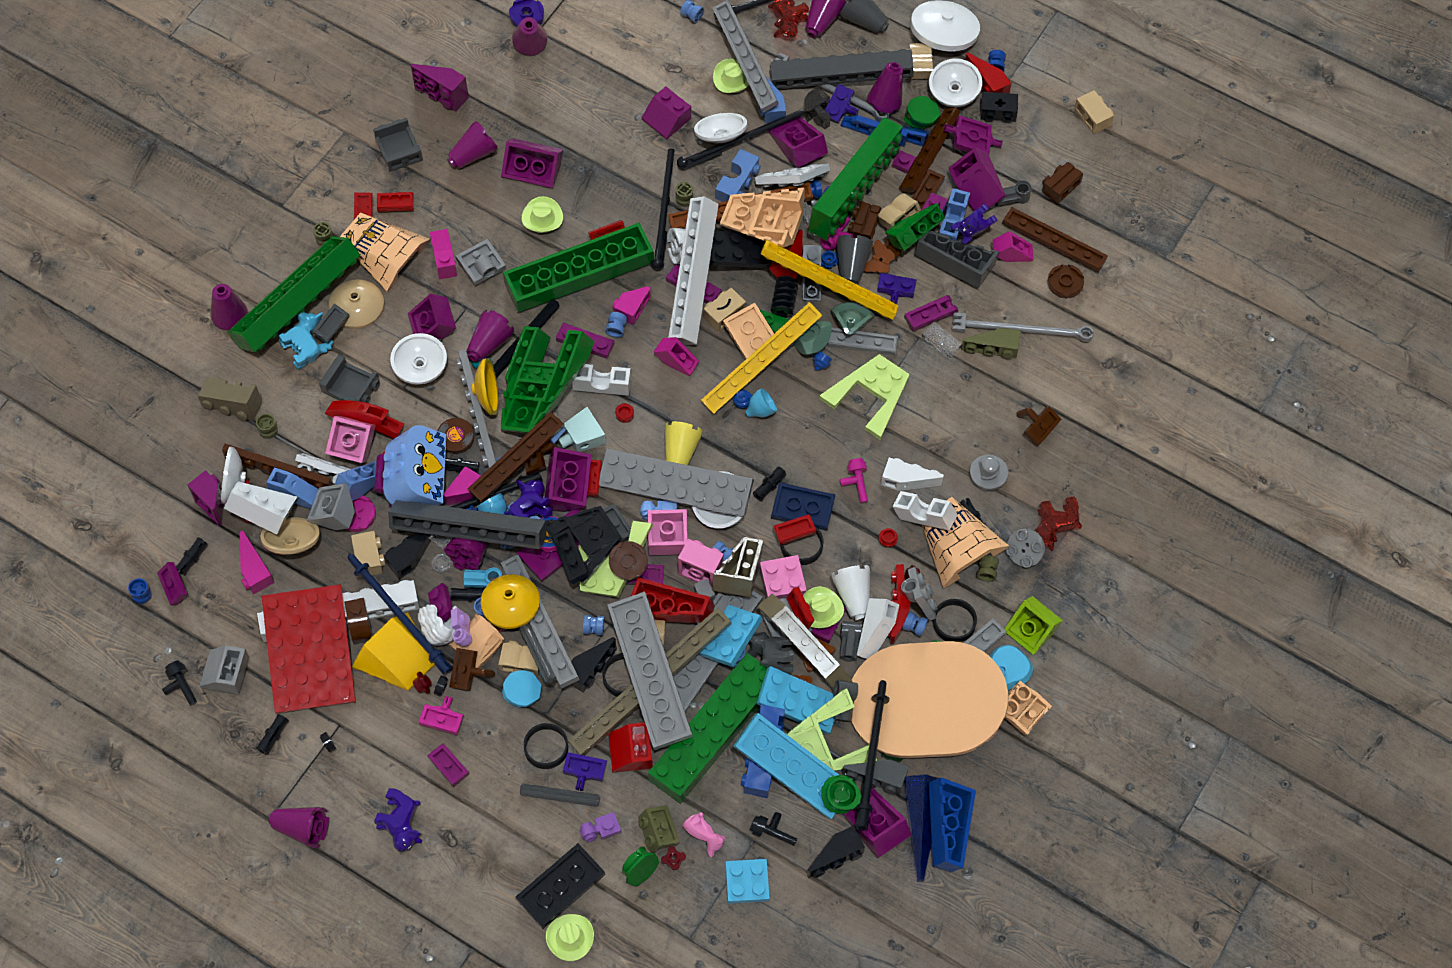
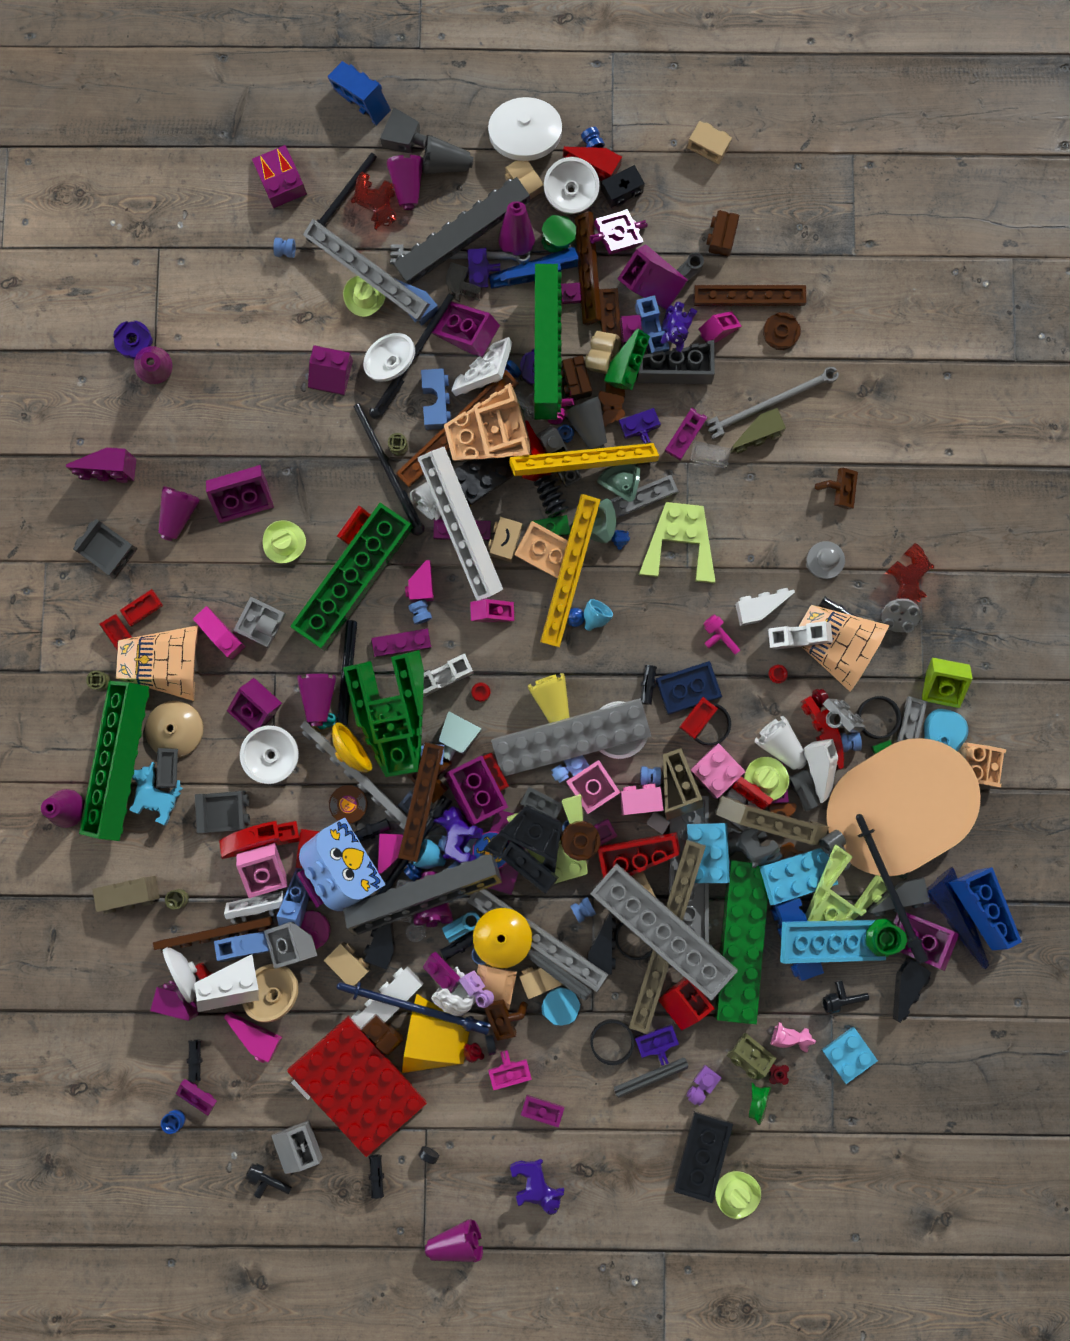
camera: 30 degrees left, 20 degrees up
(987, 568) = (881, 654): olive wheel -> none

